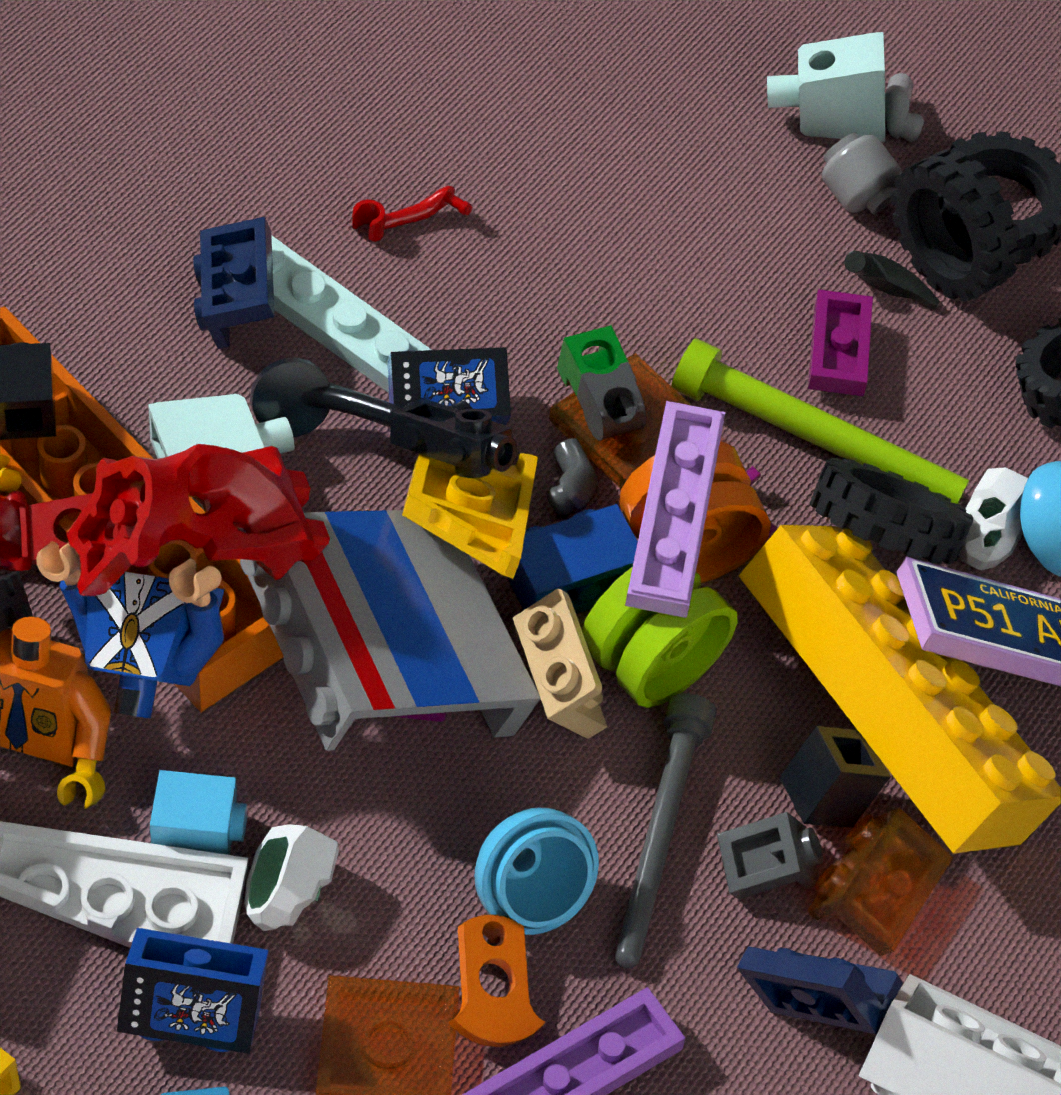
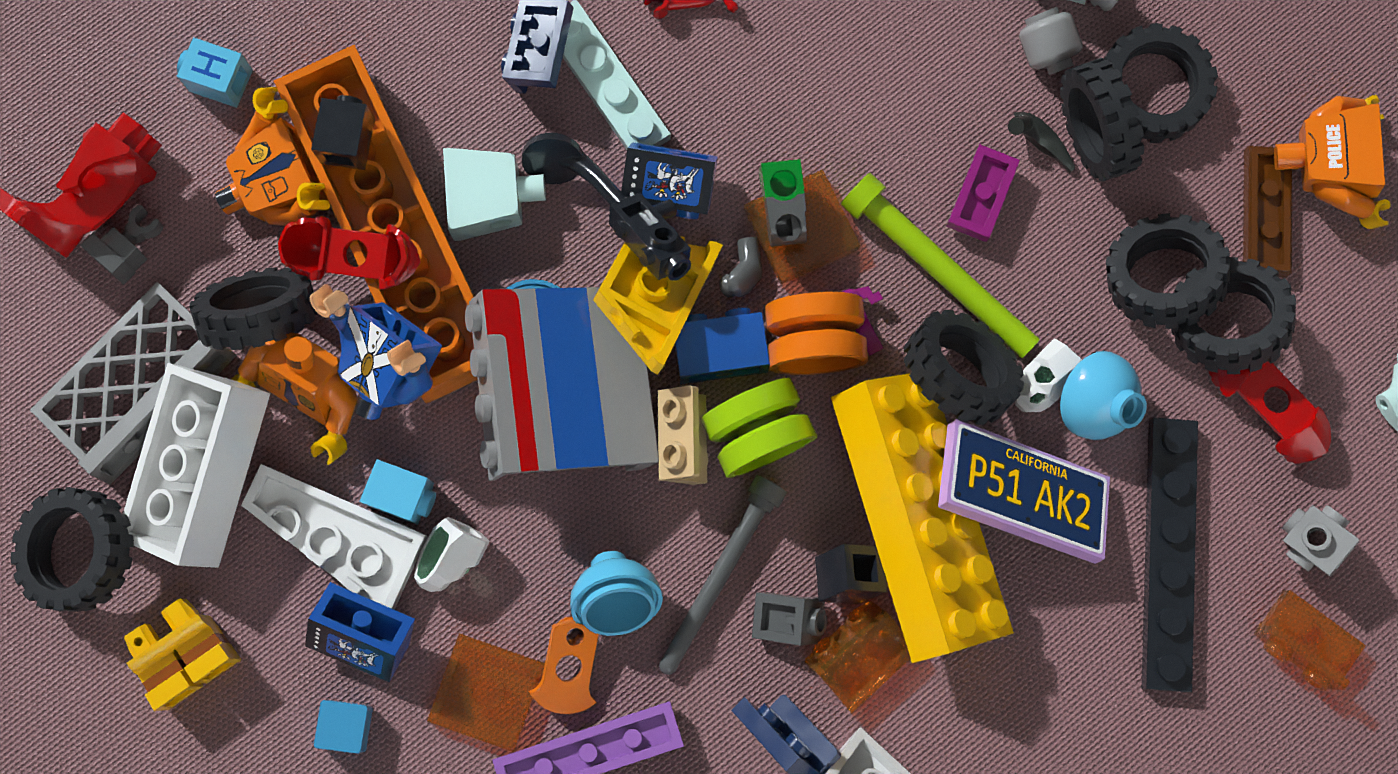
camera: 20 degrees right, 25 degrees up
(154, 508) = (456, 284): red hips -> none
(675, 510) = (788, 352): lavender tile -> none

